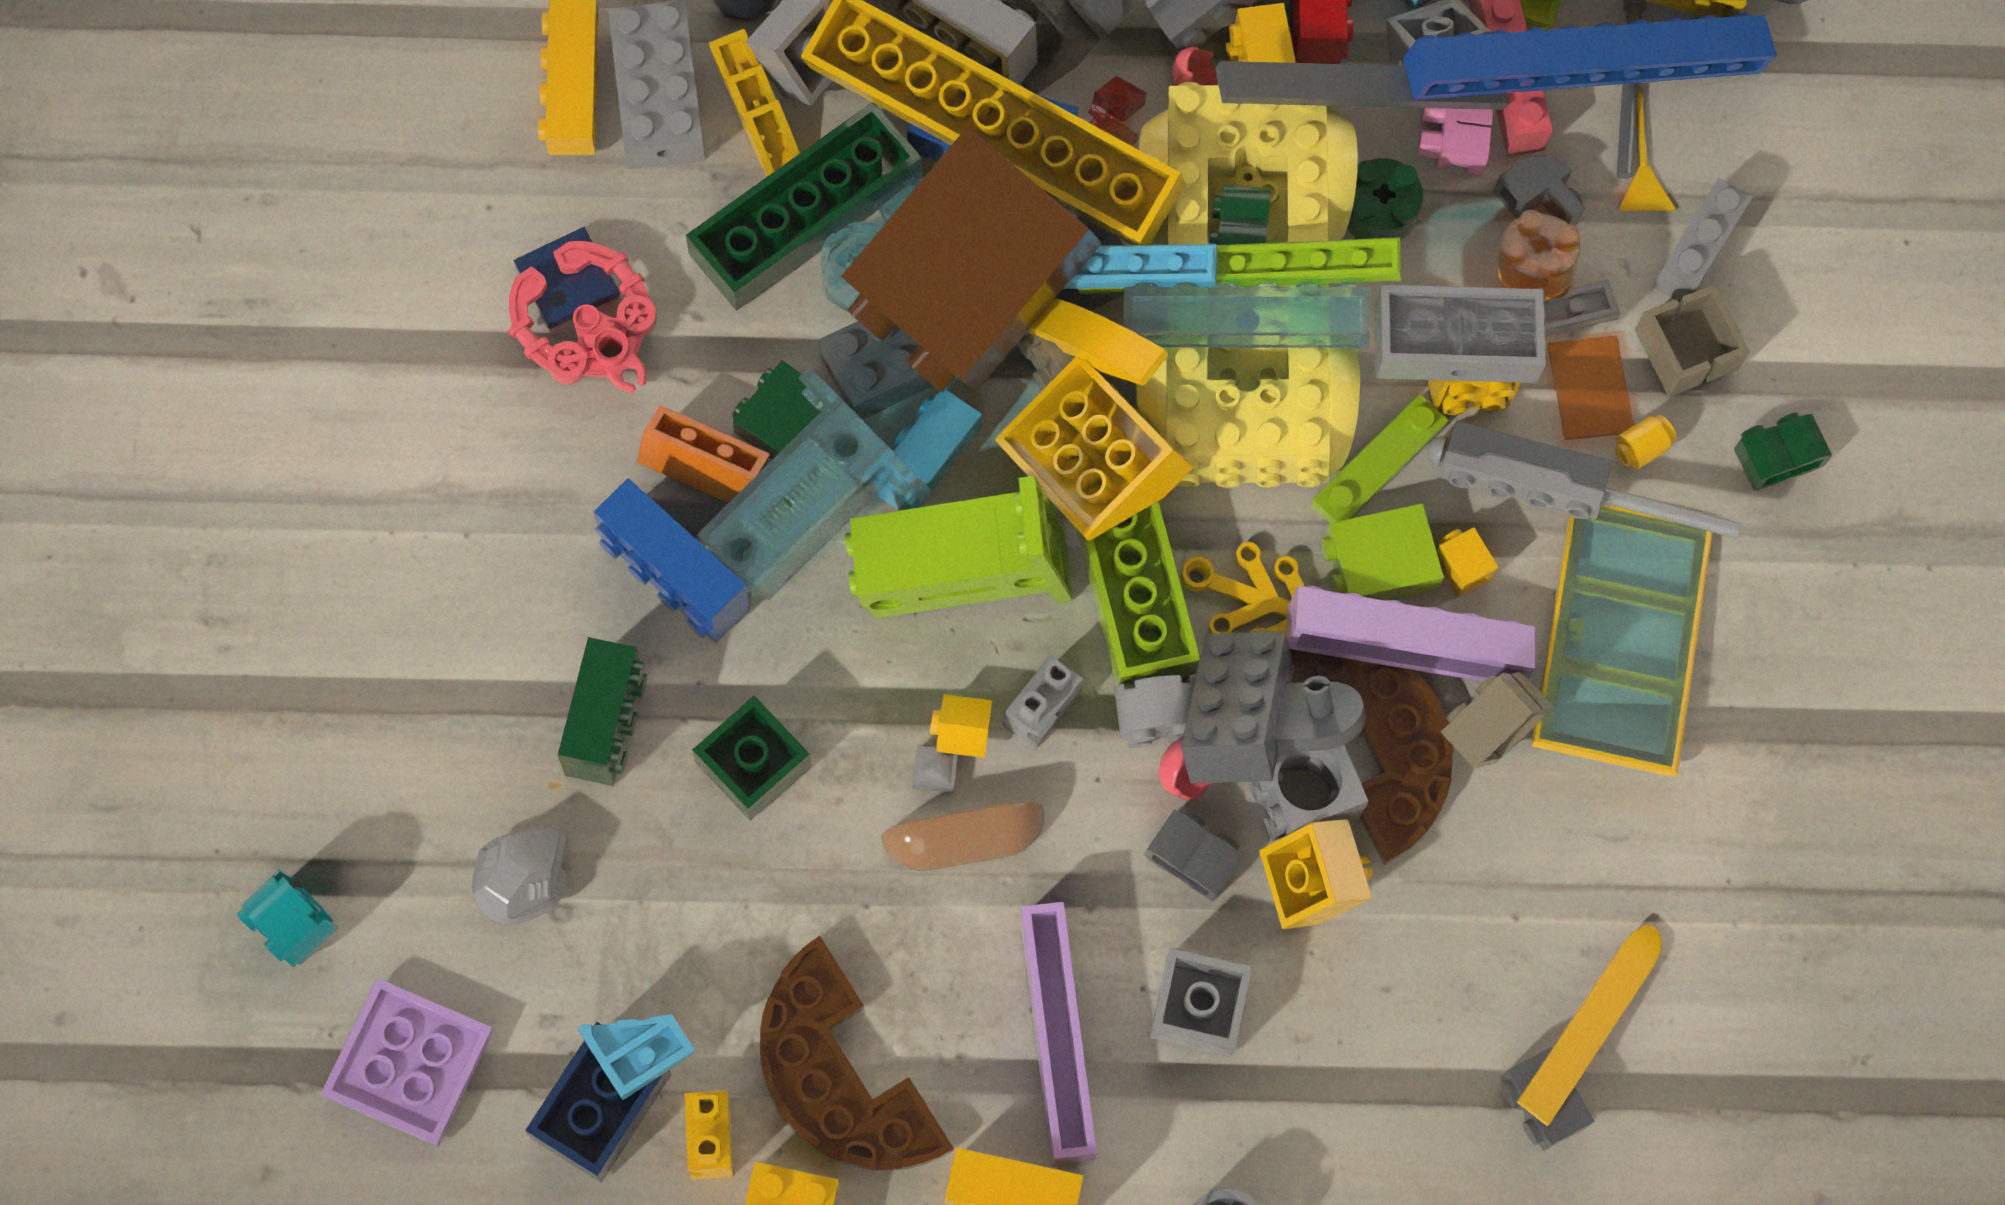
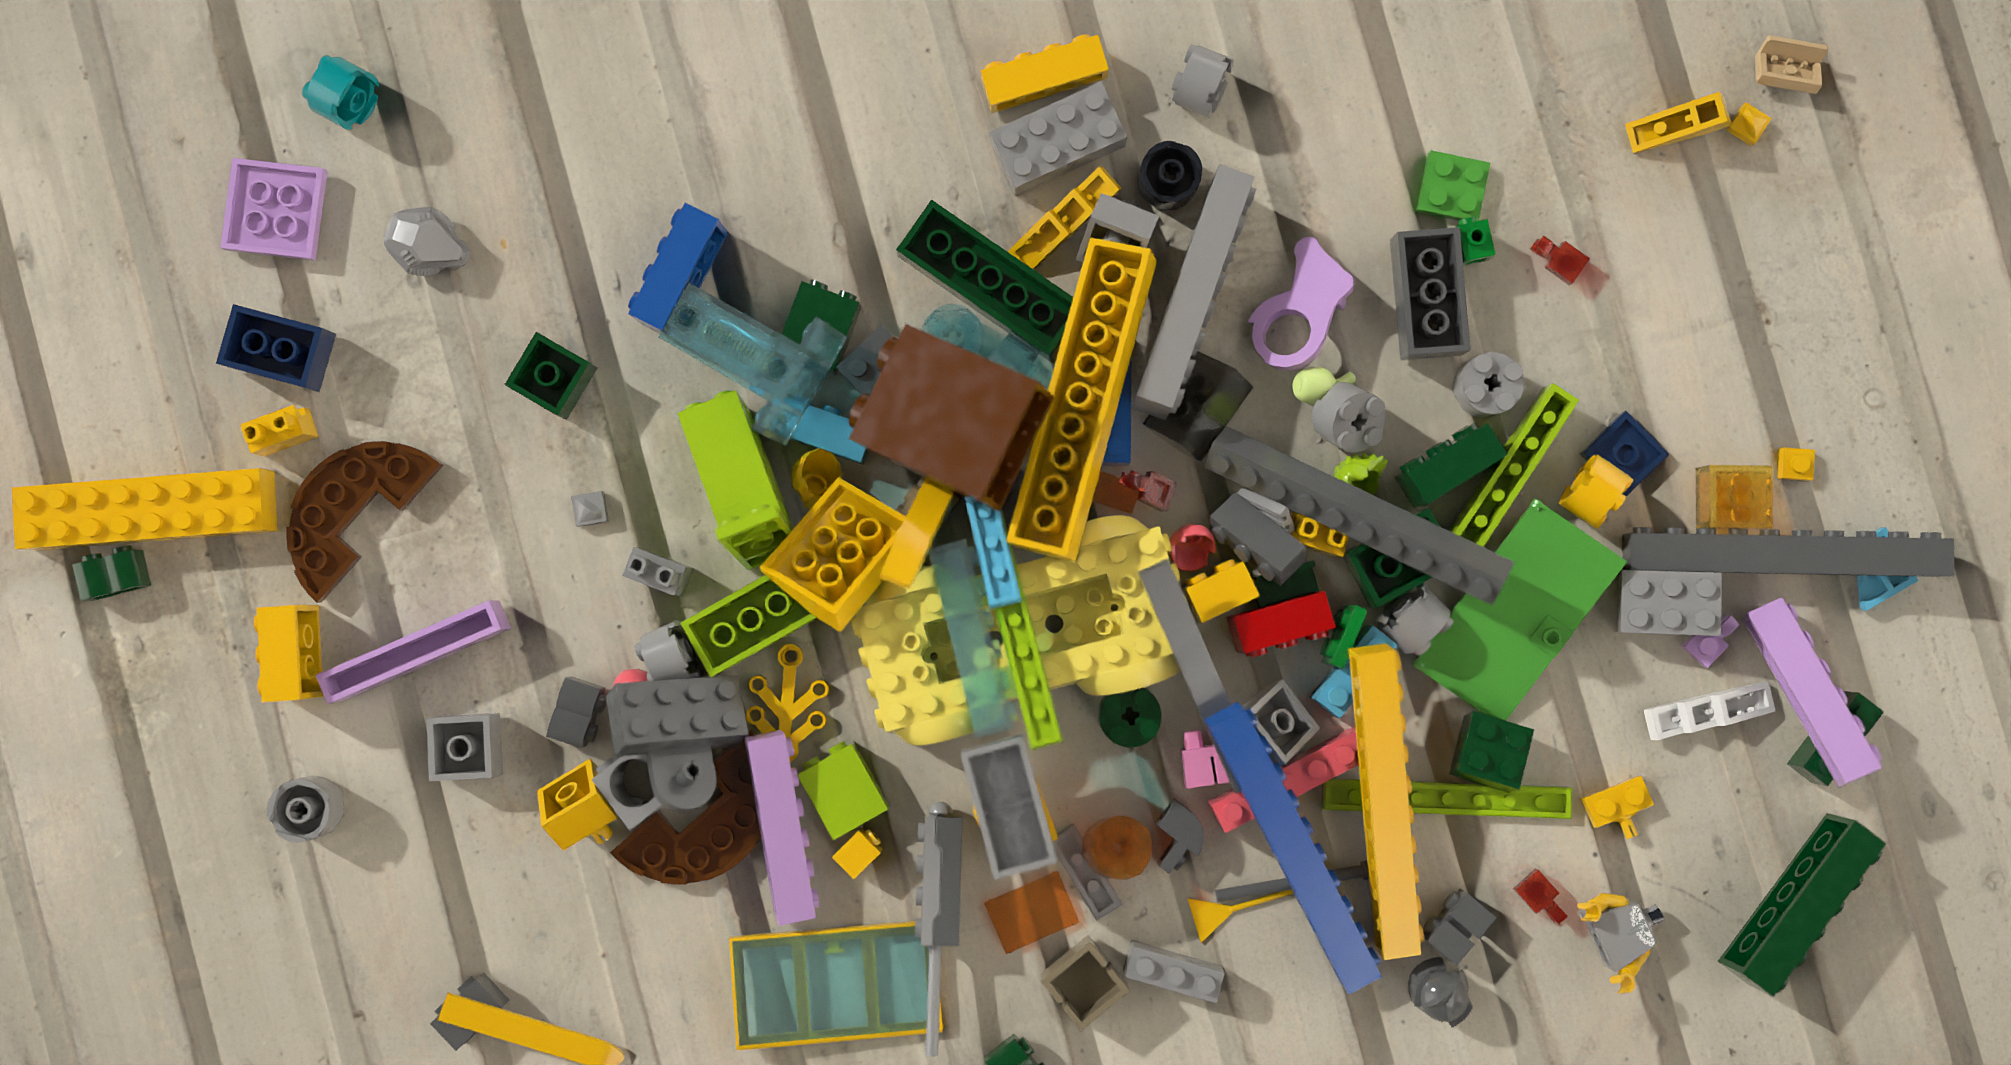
camera: 85 degrees right, 15 degrees up
(567, 291) = (886, 125): dark blue tile -> none
(571, 360) = (848, 157): coral piece -> none
(602, 712) = (550, 259): dark green brick -> none
(637, 1050) = (303, 361): medium azure wing -> none
(699, 455) = (767, 268): orange brick -> none
(962, 725) = (621, 518): yellow brick -> none
(965, 836) = (544, 545): medium nougat brick -> none
(982, 472) = (814, 475): none -> yellow hair
(1242, 215) = (1061, 614): dark green brick -> none
(1380, 461) = (919, 767): lime plate -> none
(1496, 718) = (729, 907): dark tan piece -> none
(1645, 441) = (994, 964): yellow brick -> none

